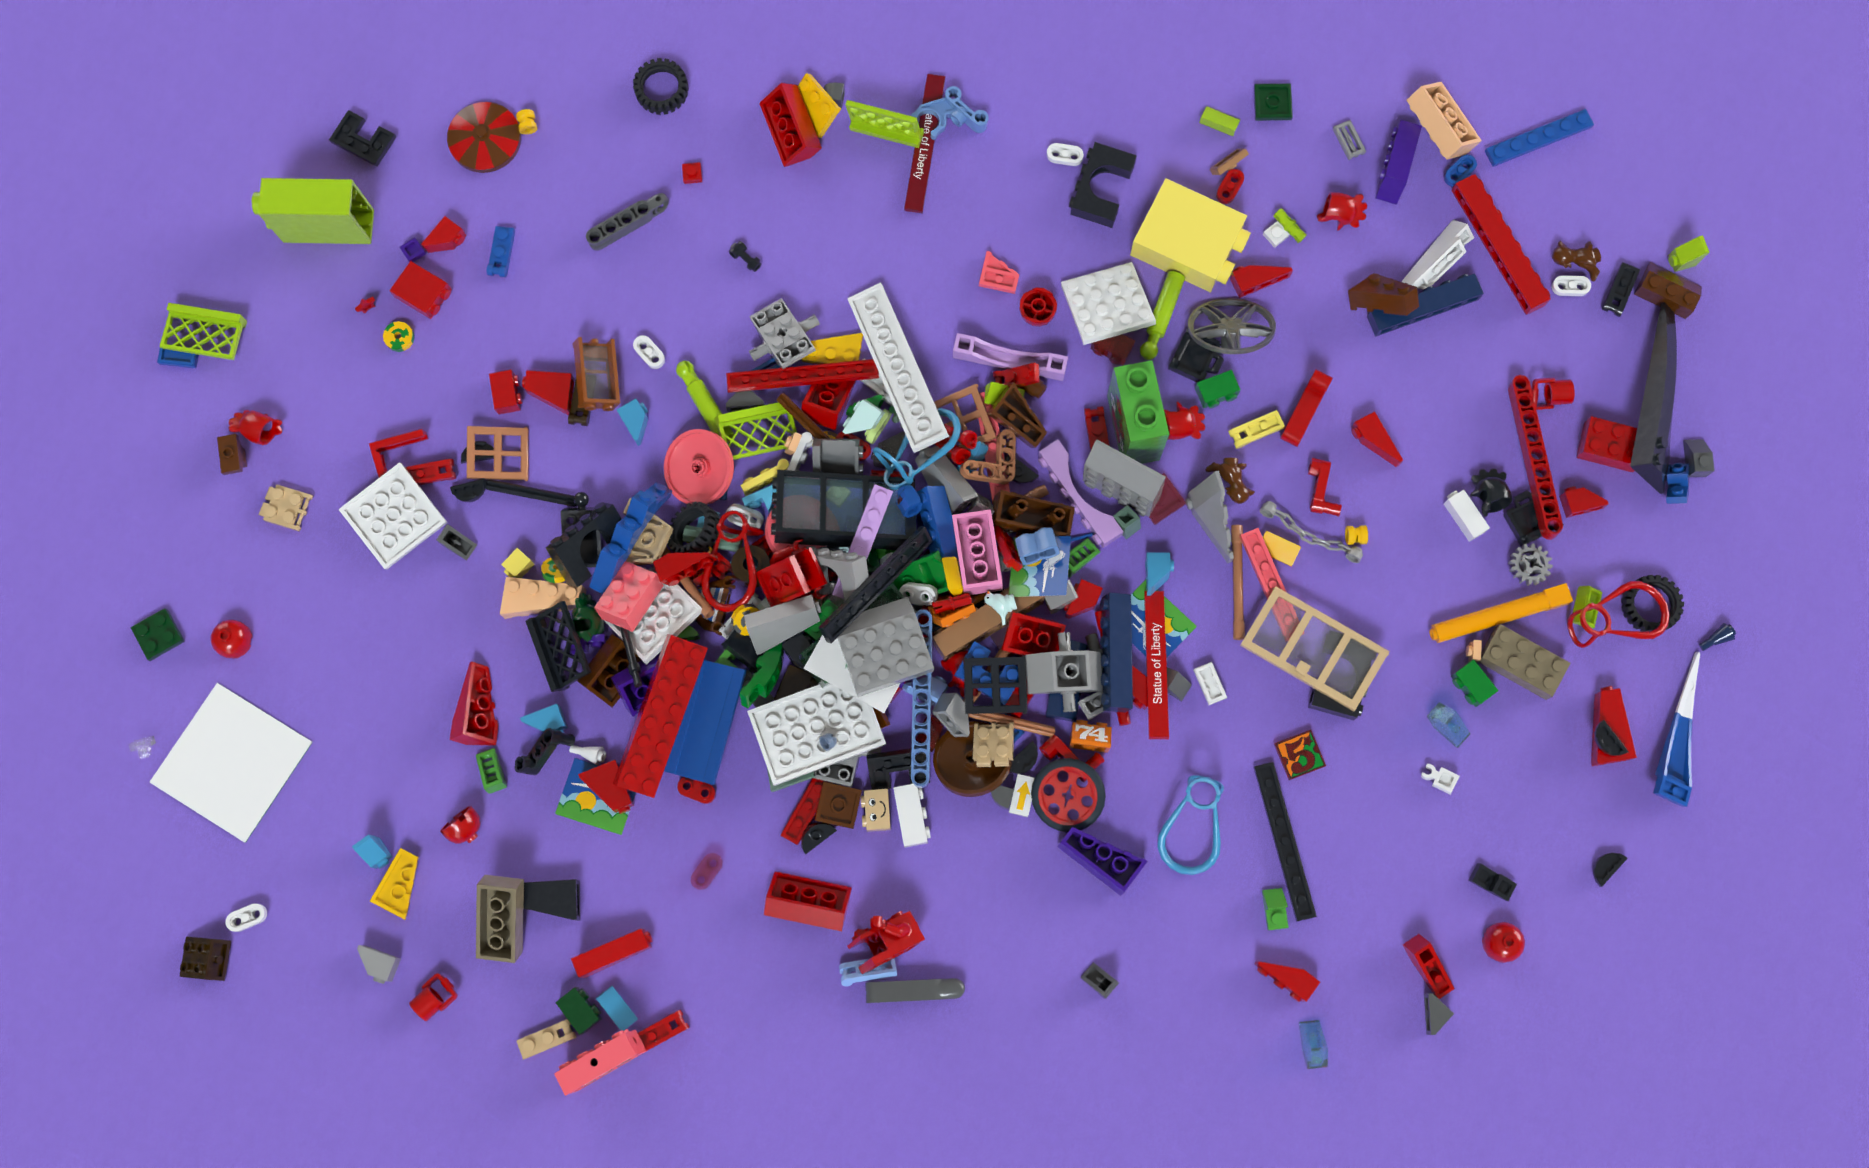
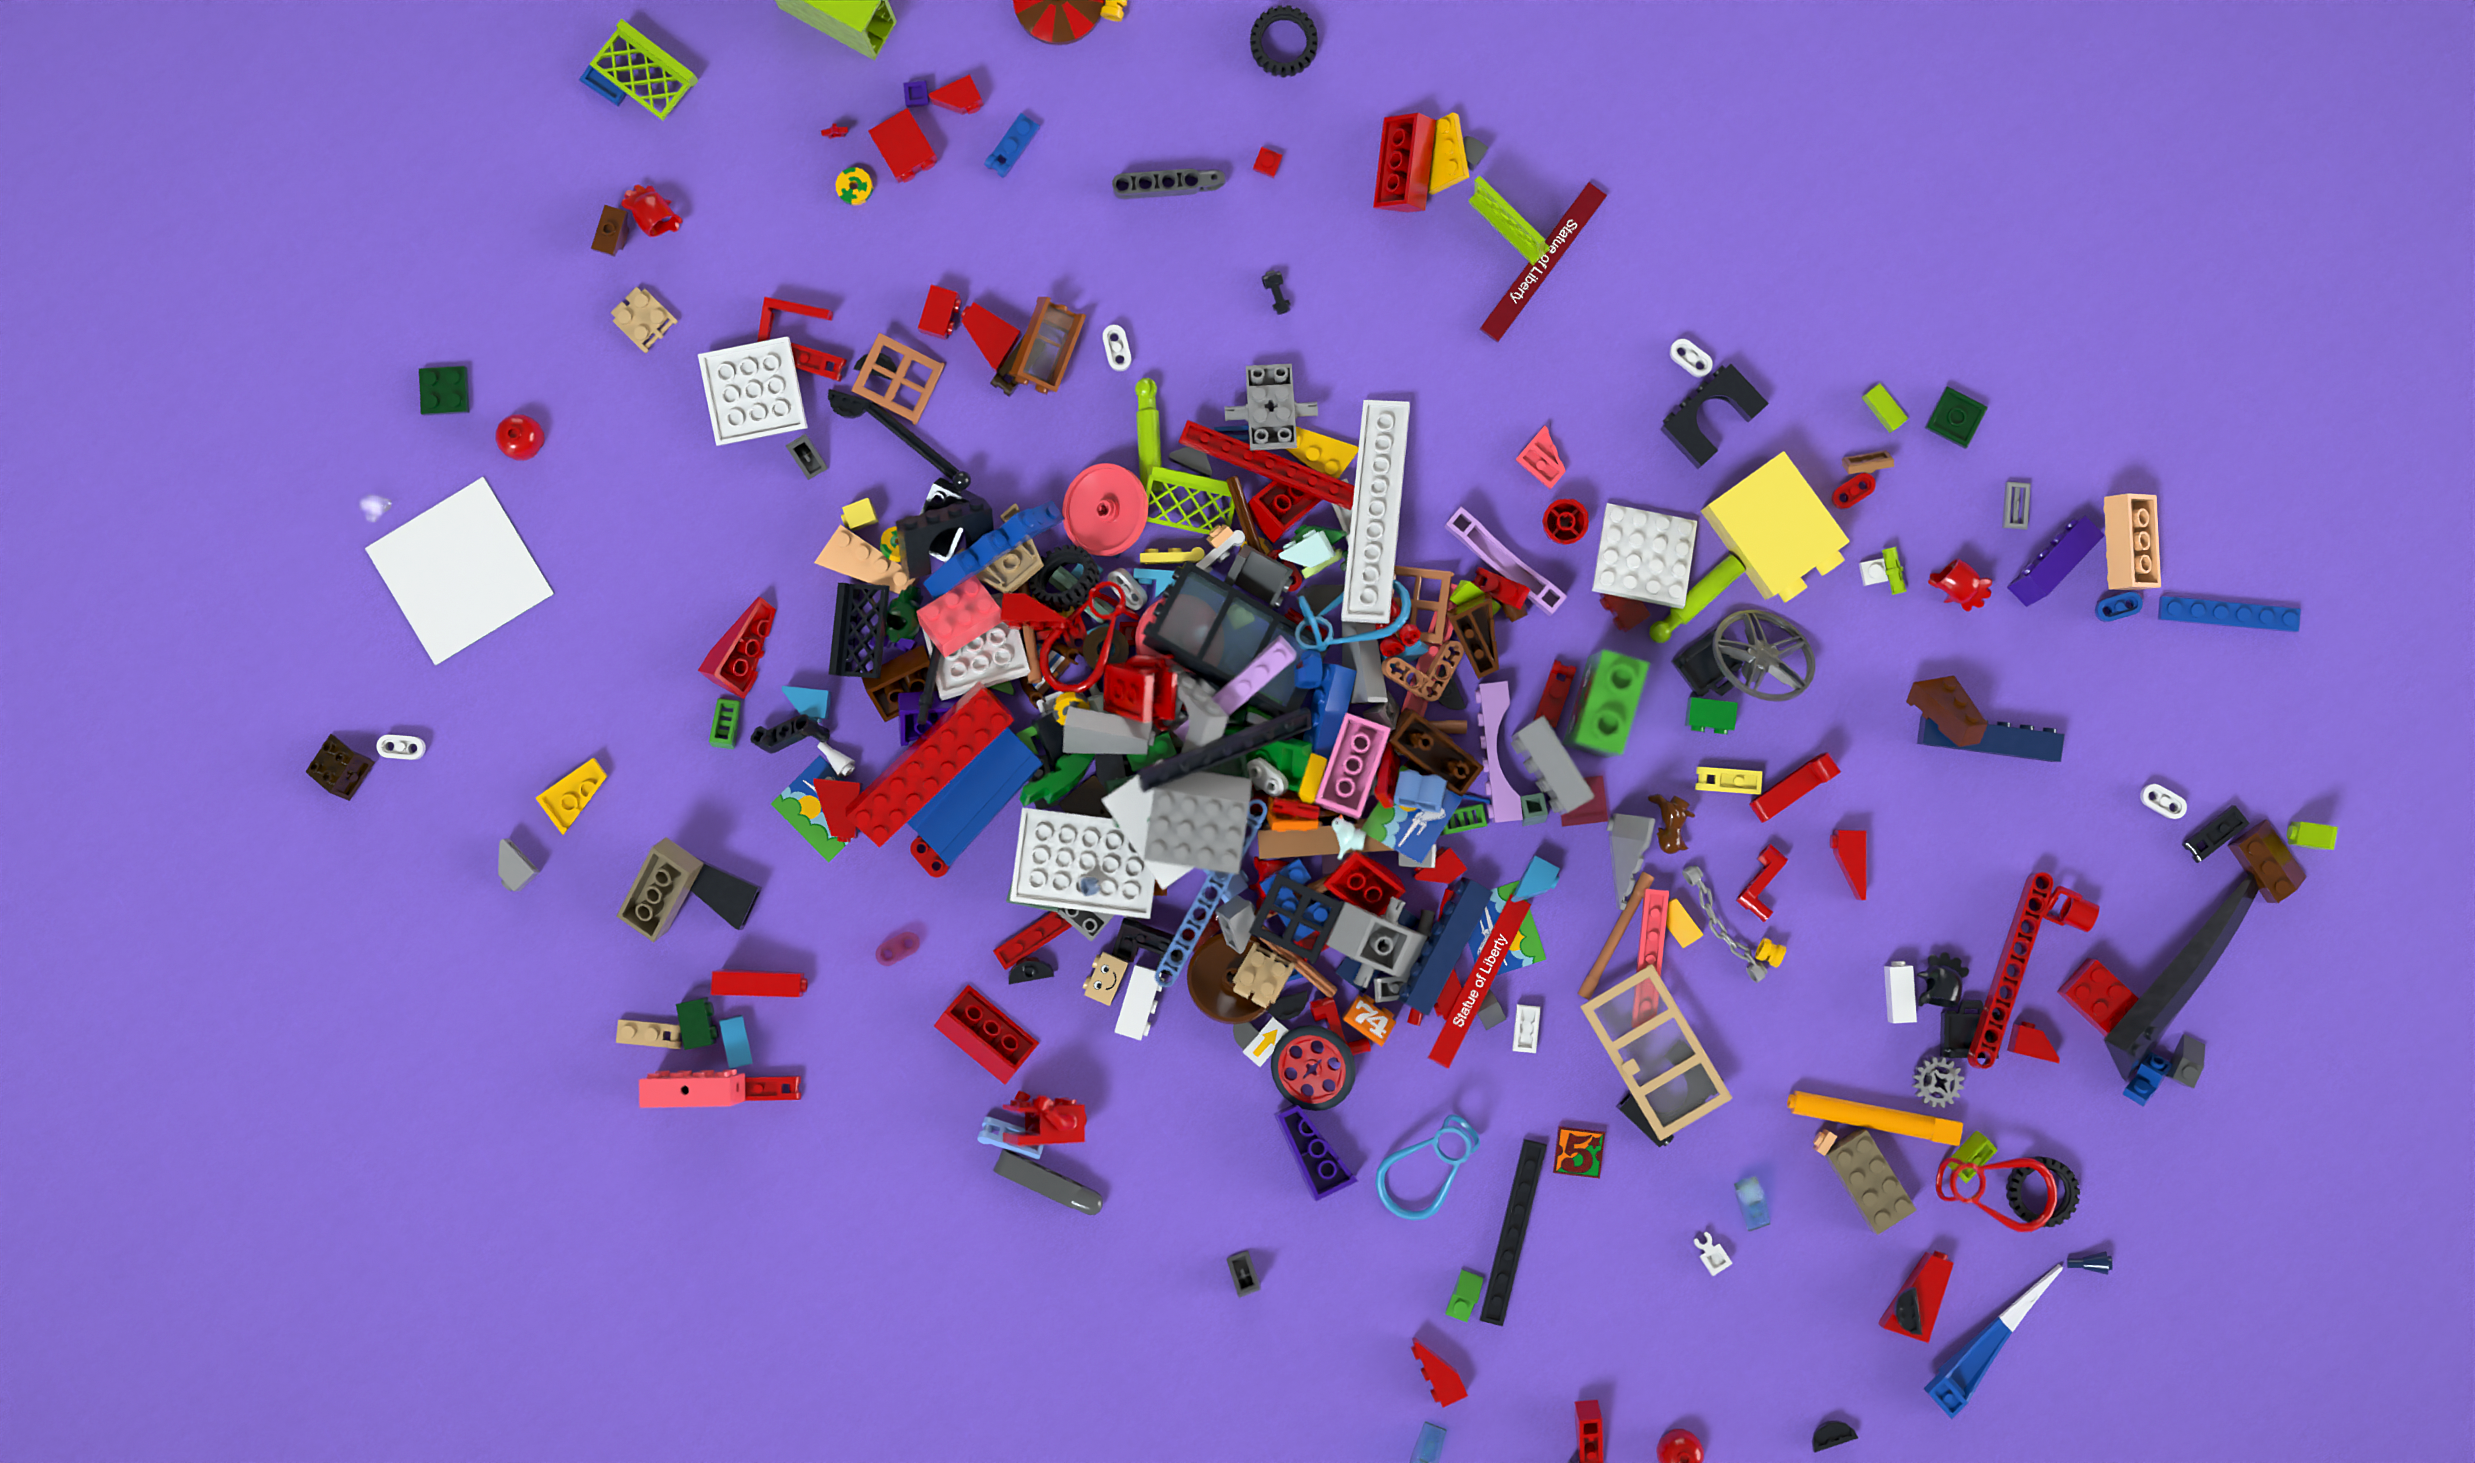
camera: 25 degrees right, 10 degrees up
(373, 851) = (563, 748): dark azure slope -> none
(429, 1001) = (549, 933): red piece -> none
(462, 827) = (667, 770): red cylinder -> none
(635, 419) = (1063, 417): dark azure slope -> none
(838, 805) = (1068, 952): reddish brown plate -> none
(955, 110) = (1595, 241): medium blue piece -> none
(1184, 422) = (1654, 733): red piece -> none
(1254, 278) = (1822, 611): red slope -> none
(1440, 256) = (2038, 692): white wedge -> none
(1474, 683) = (1804, 1175): green brick -> none
(1492, 882) = (1704, 1387): black slope -> none
(1501, 244) = (2113, 713): red brick -> none
(1583, 257) = (2196, 778): reddish brown animal -> none

